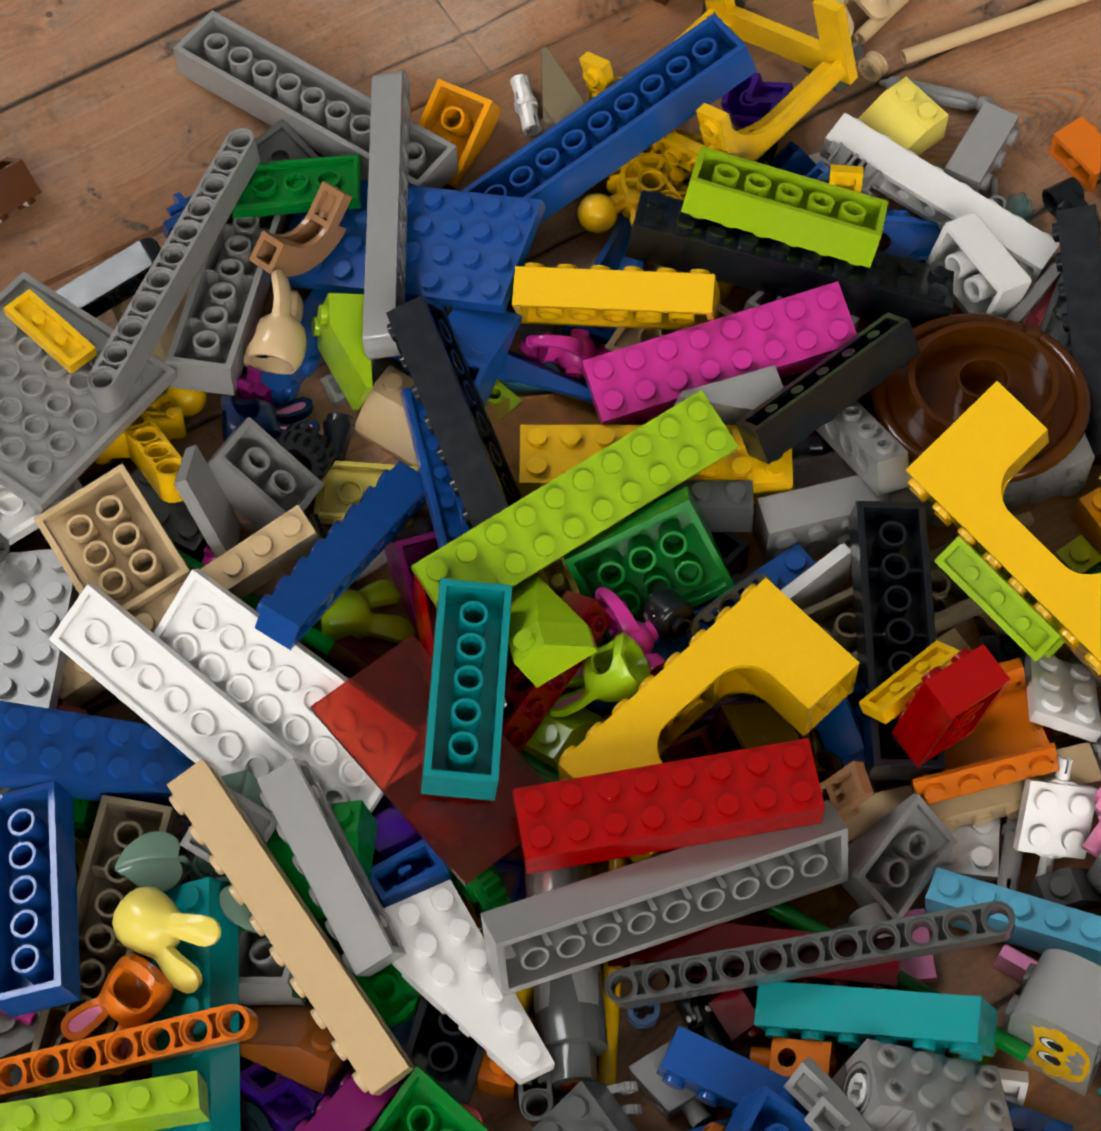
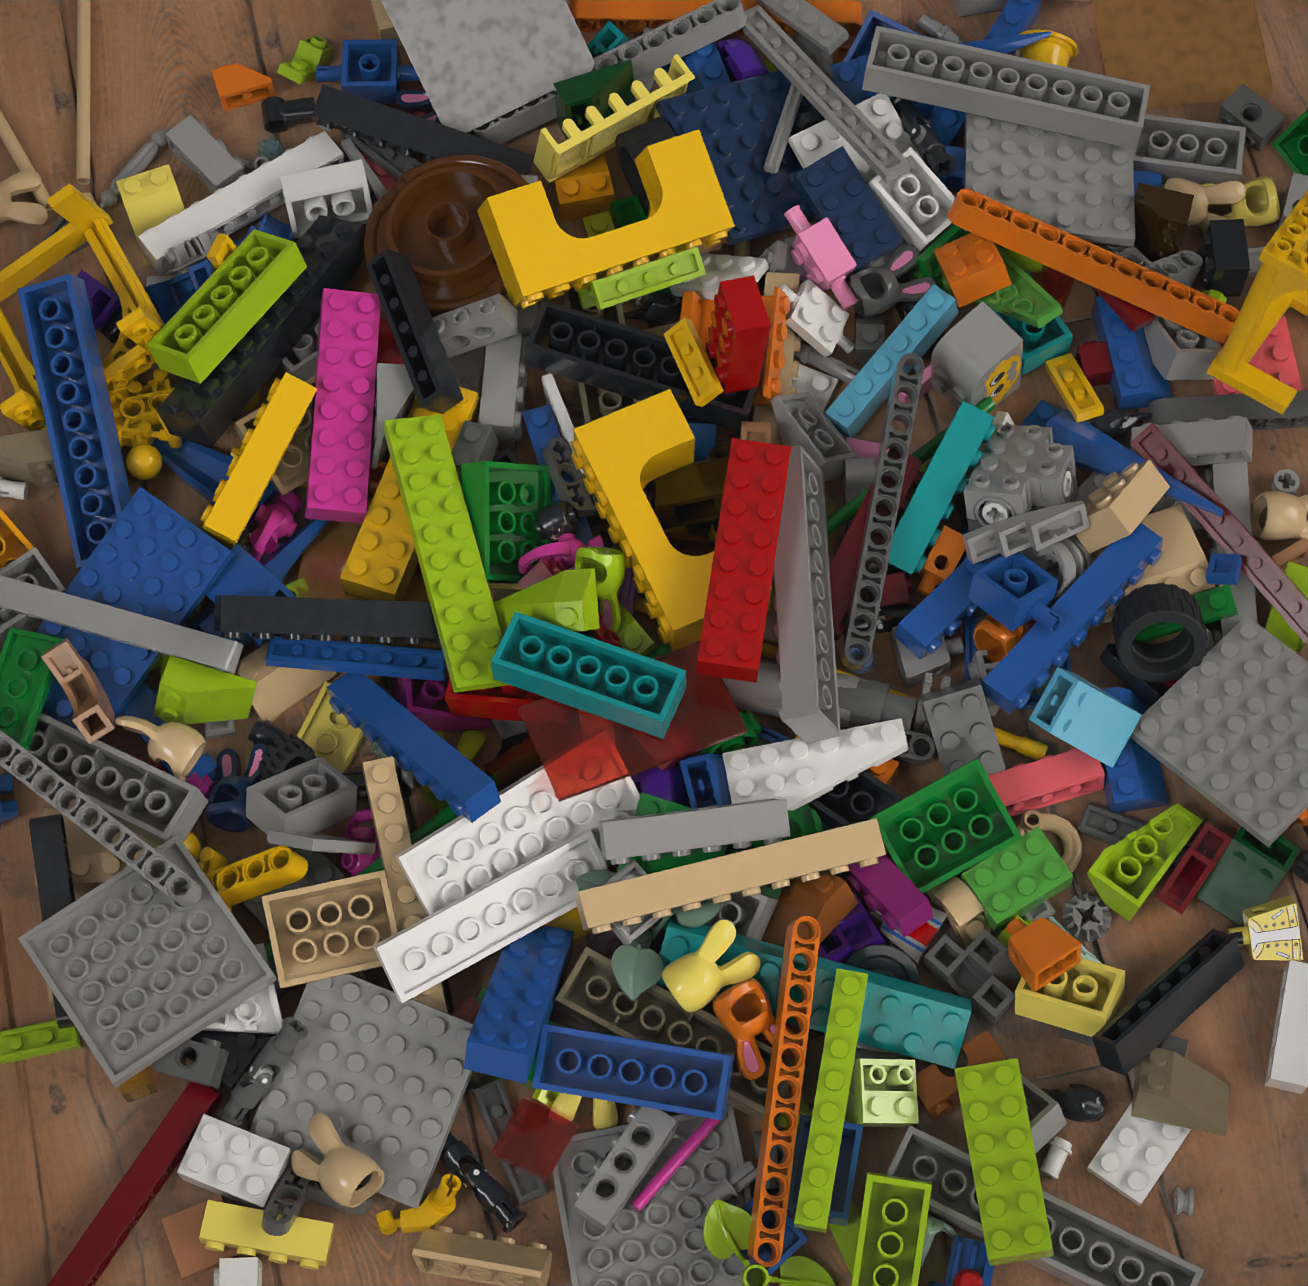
camera: 70 degrees left, 5 degrees up
(50, 331) = (99, 925): yellow plate -> none

